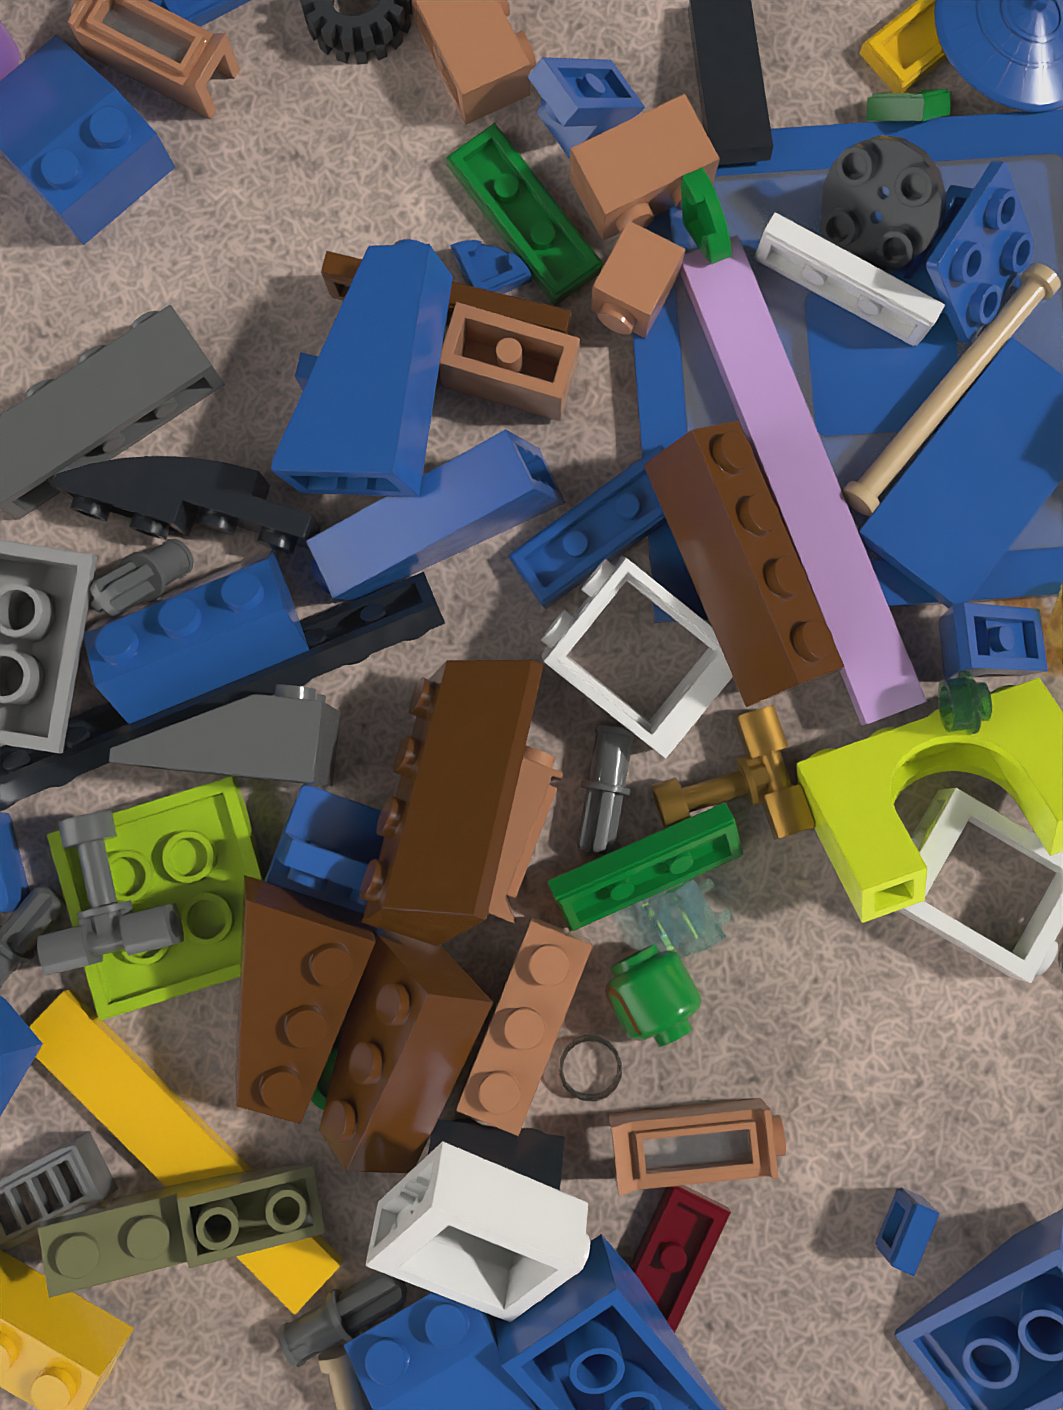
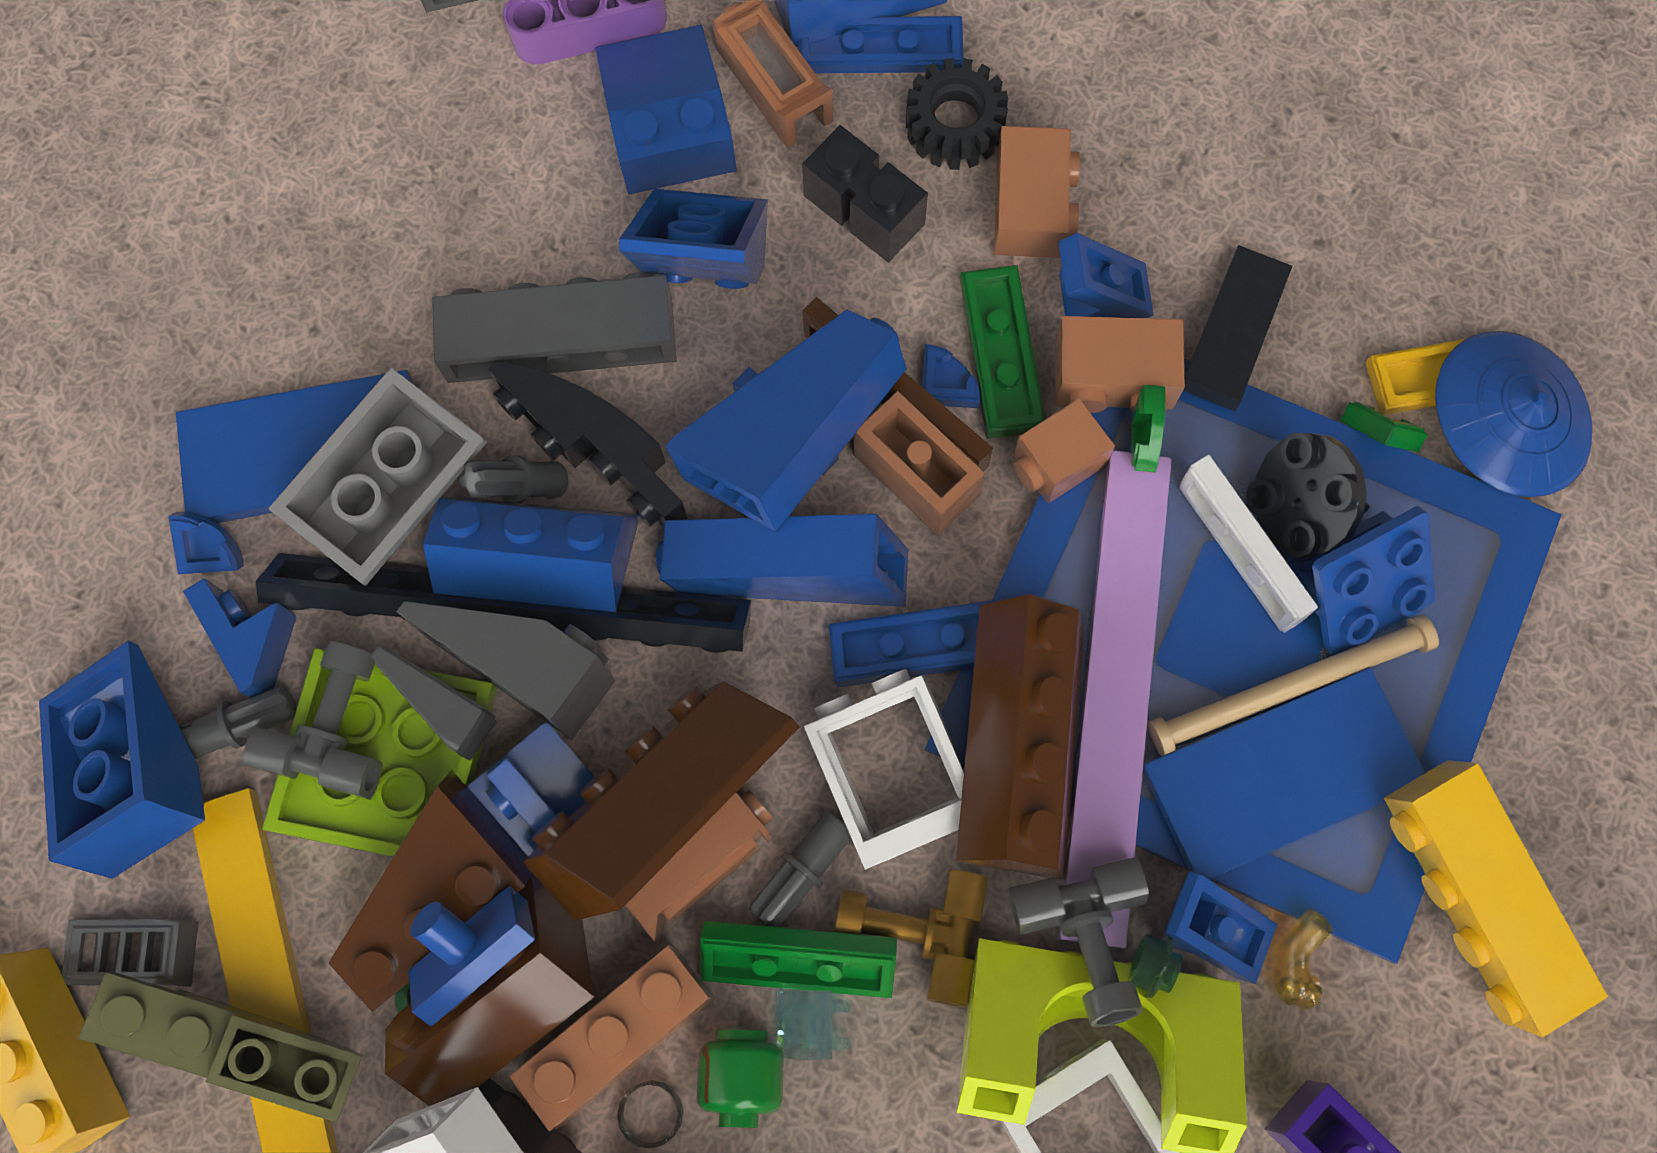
camera: 30 degrees right, 10 degrees down
(181, 250) = (698, 237): none -> blue slope
(208, 825) = (449, 713): none -> dark grey slope
(340, 122) = (885, 203): none -> black piece
(359, 1030) = (464, 952): none -> blue tile
(878, 690) = (1083, 913): none -> dark grey bar

